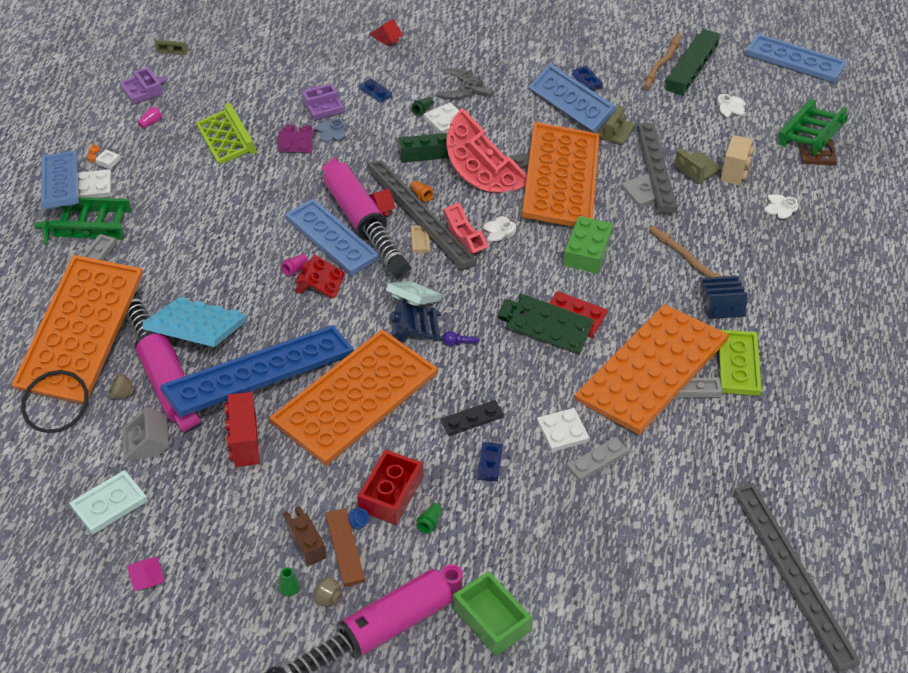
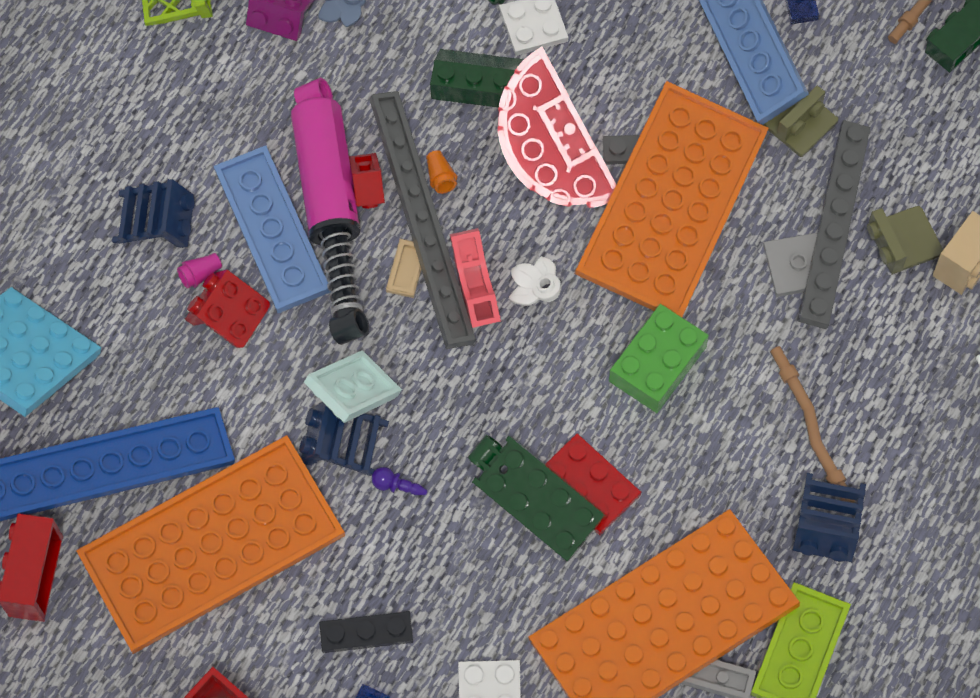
camera: 20 degrees right, 20 degrees up
(265, 237) = (168, 214): none -> dark blue plate

